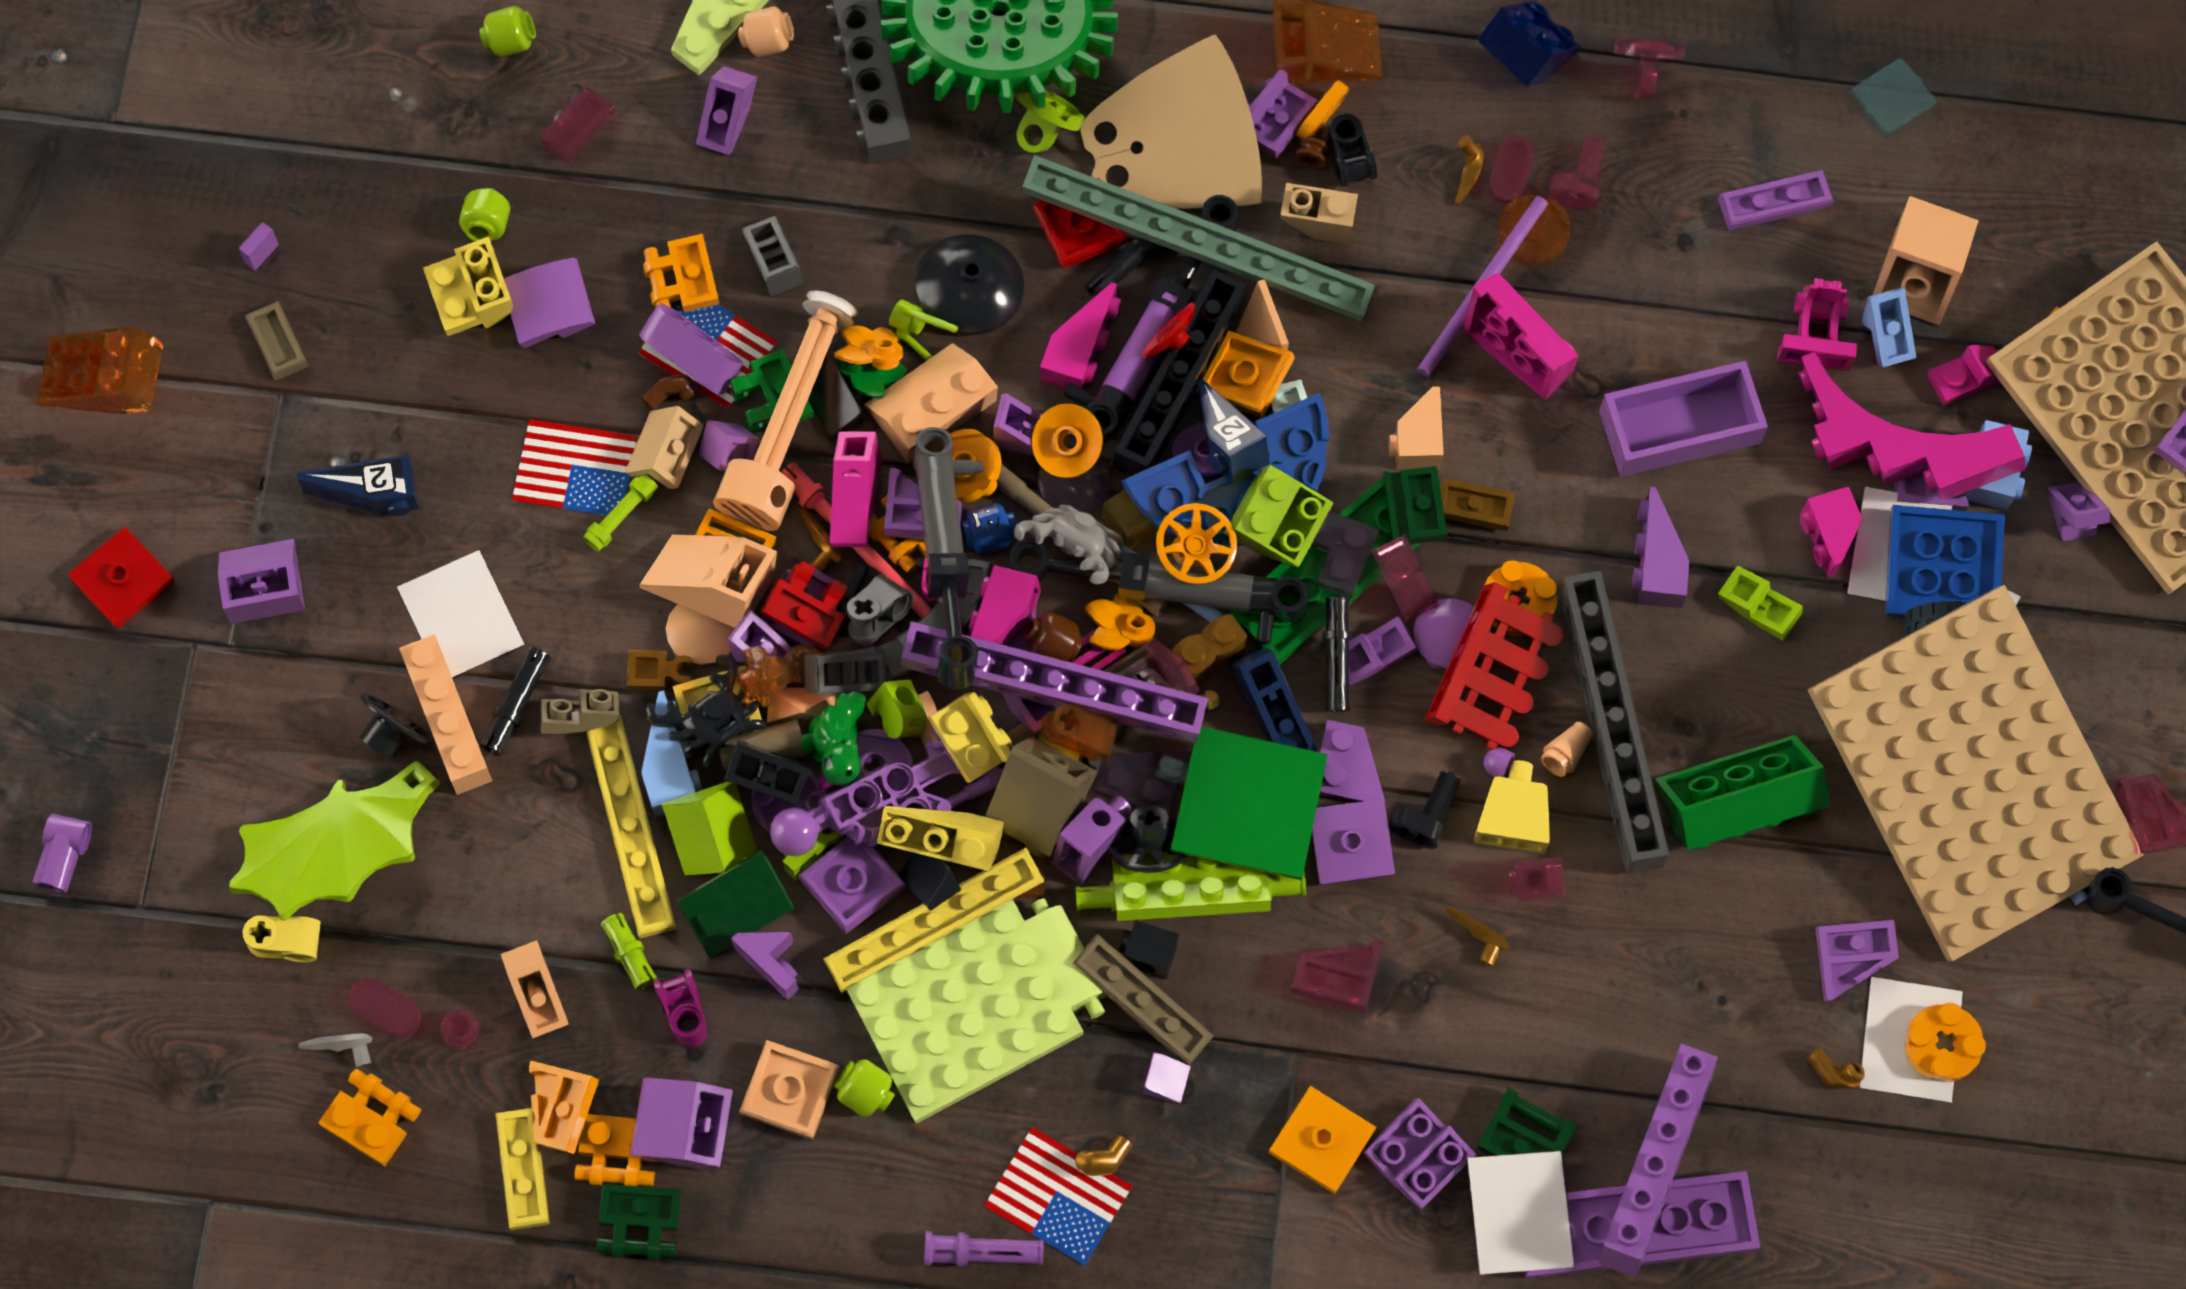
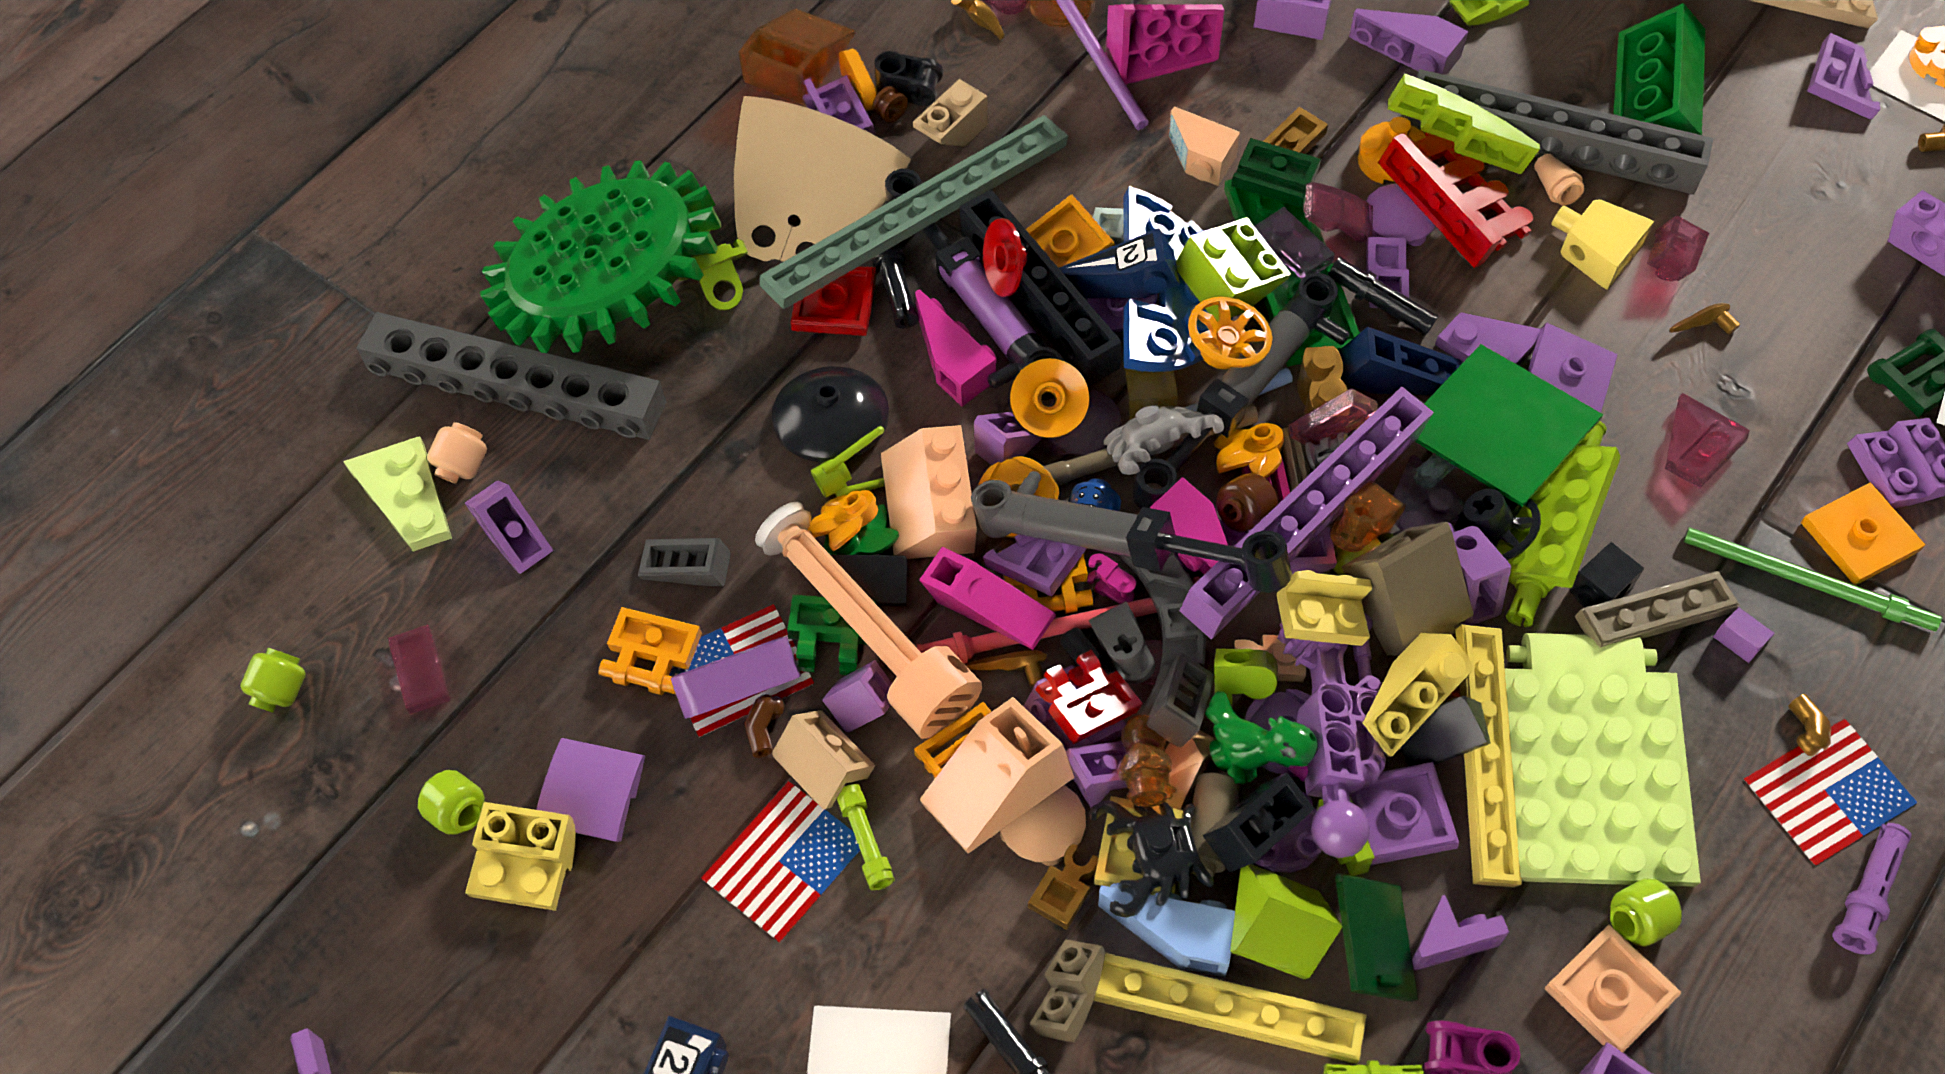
camera: 55 degrees left, 10 degrees down
(1258, 1186) = (1891, 607): none -> bright green bar
(1262, 320) = (1026, 202): light nougat slope -> none
(1426, 827) = (1580, 311): black piece -> none
(1498, 762) = (1547, 231): medium lavender hinge -> none
(1563, 651) = (1469, 126): none -> lime slope

